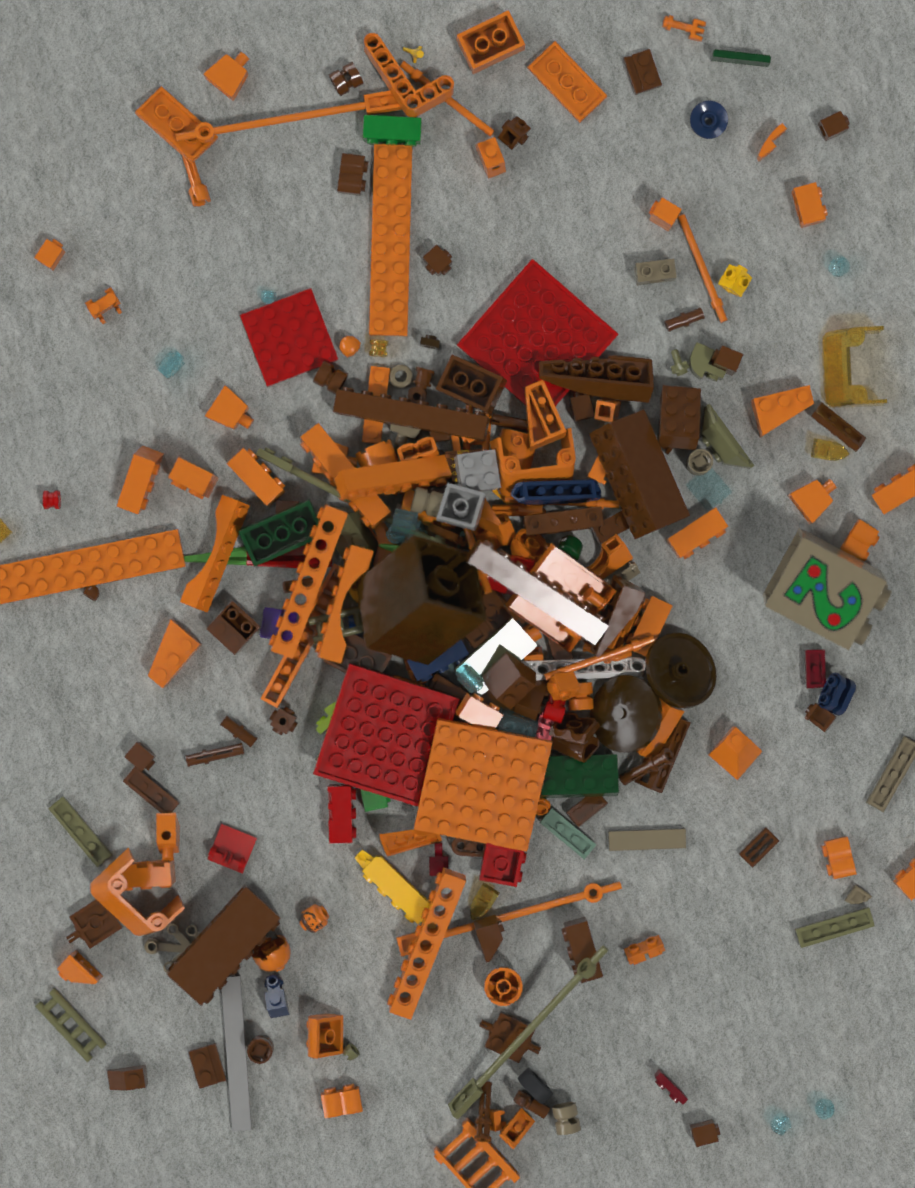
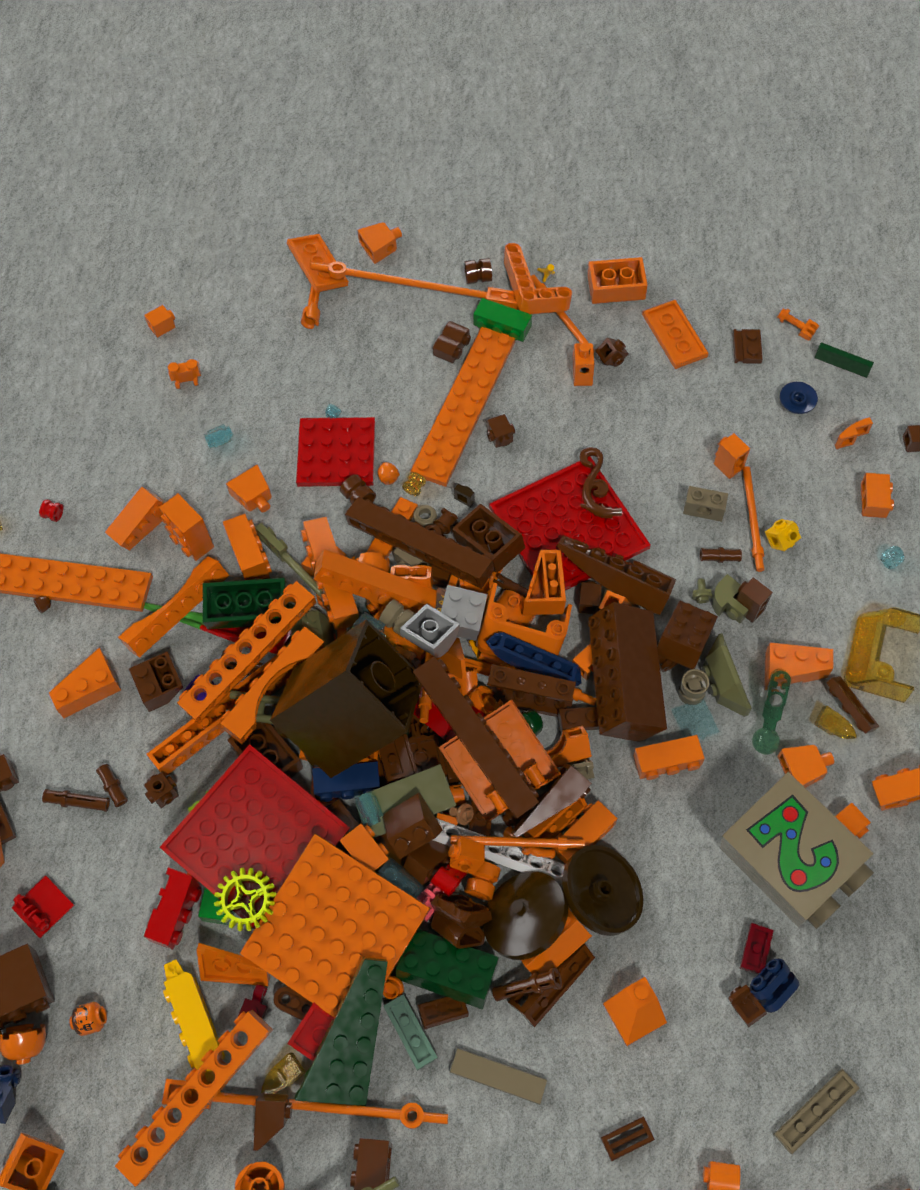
camera: 30 degrees right, 25 degrees down
(389, 777) = (235, 904): none -> neon yellow gear
(527, 864) = (347, 1050): none -> dark green wing
(543, 290) = (600, 485): none -> reddish brown plant
(545, 649) = (463, 814): none -> medium nougat plate
(774, 485) = (766, 738): none -> clear green beam

